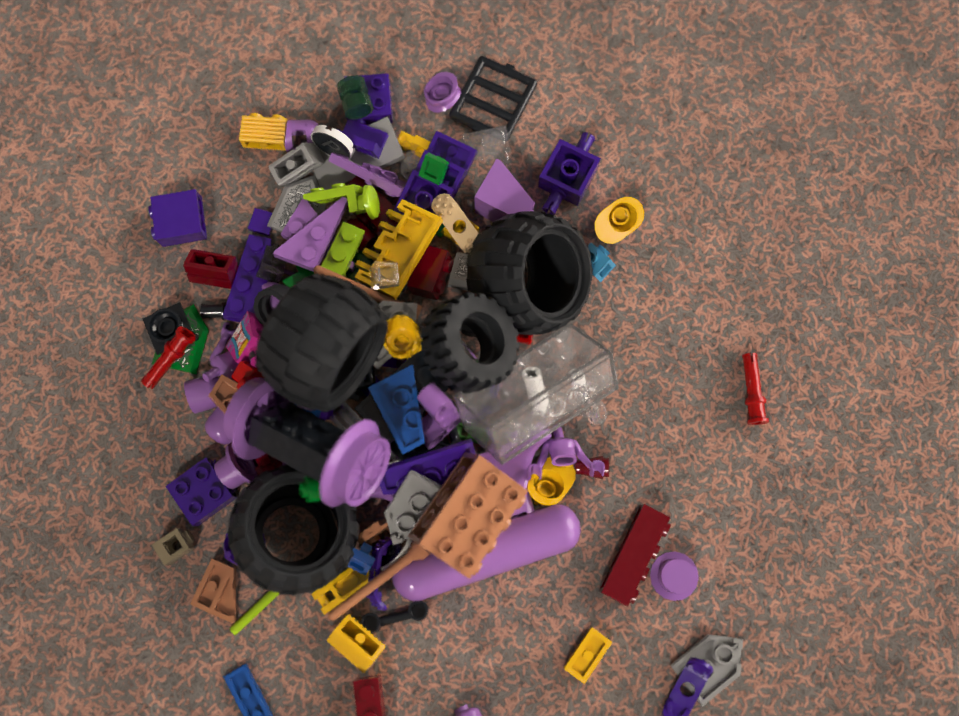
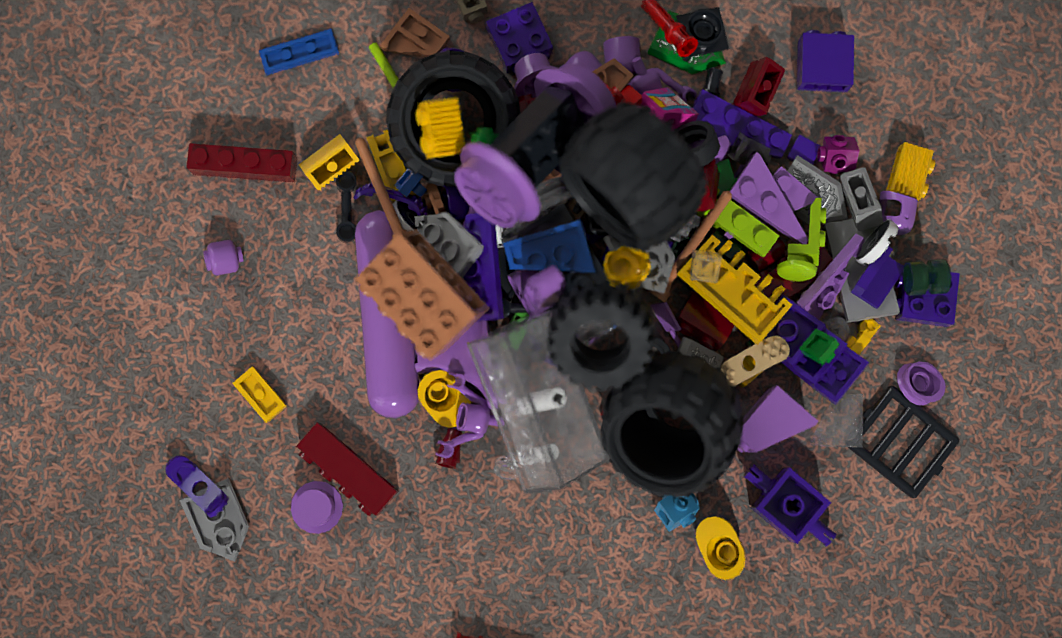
camera: 100 degrees right, 5 degrees up
(259, 191) = (838, 154): none -> magenta brick
(308, 531) = (440, 127): none -> yellow brick
(370, 509) = (456, 204): none -> dark purple hair
(436, 300) = (667, 320): none -> medium lavender piece

